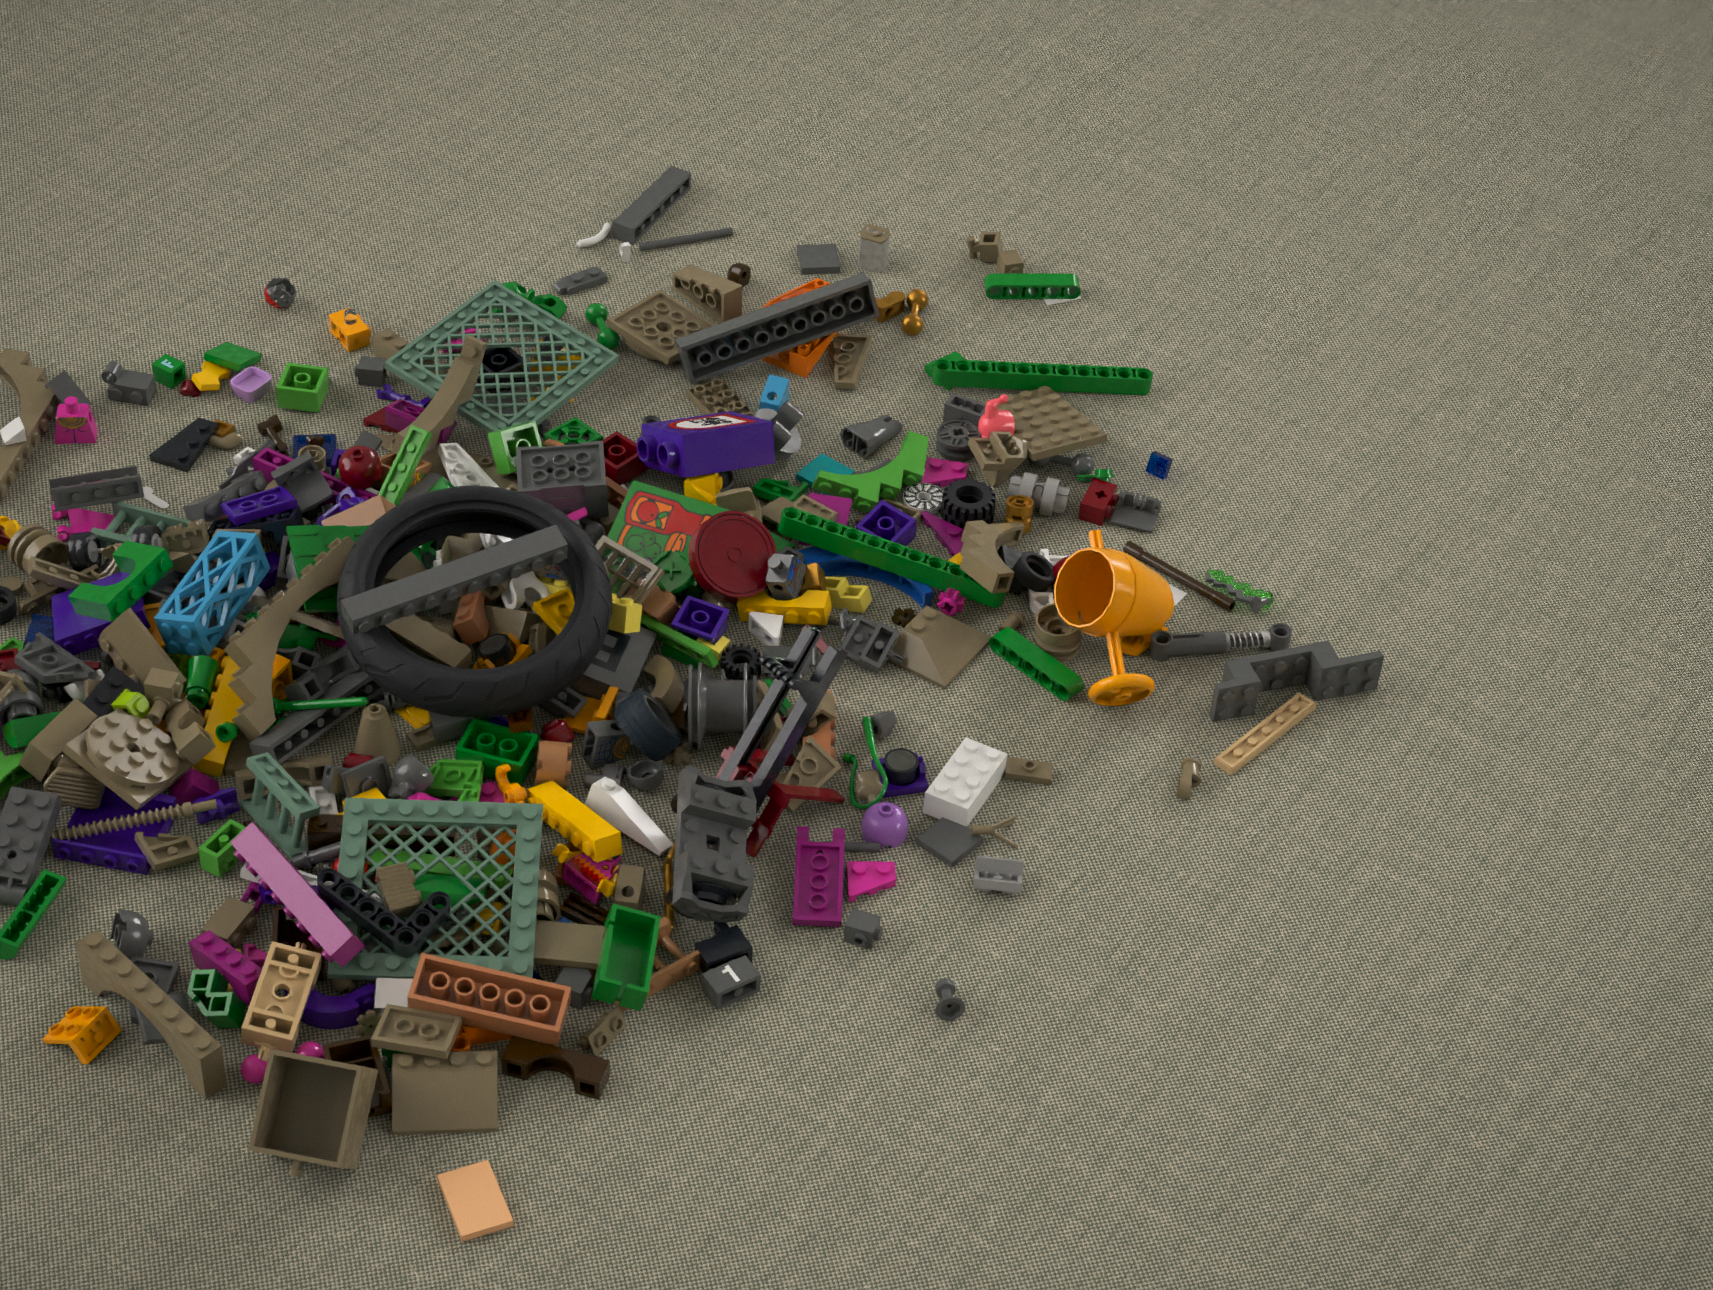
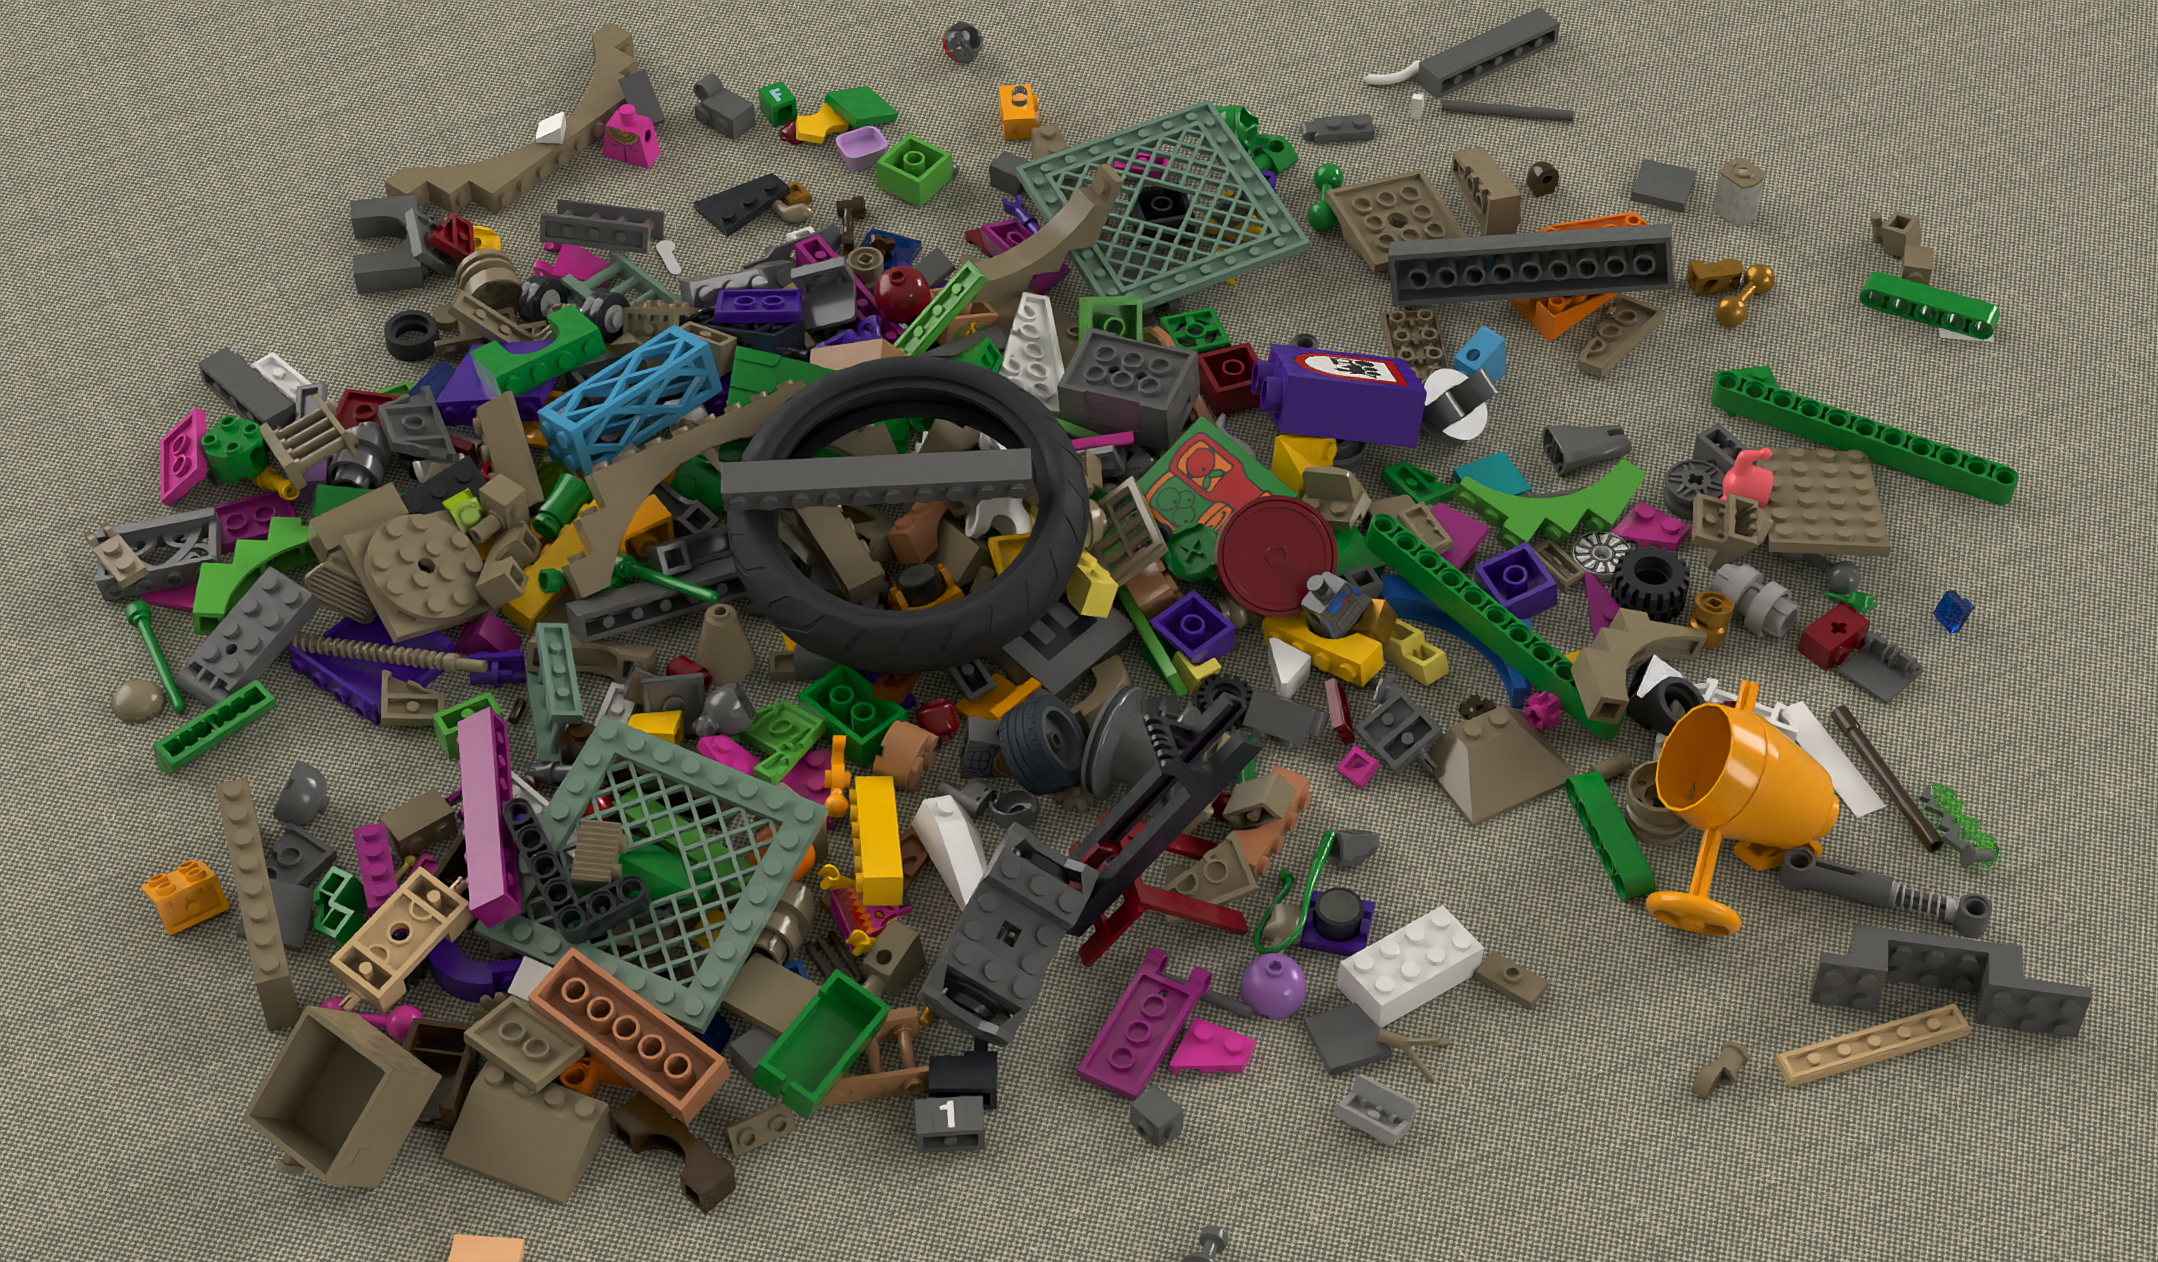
camera: 30 degrees right, 5 degrees up
(852, 675) = (1358, 767): none -> dark pink tile

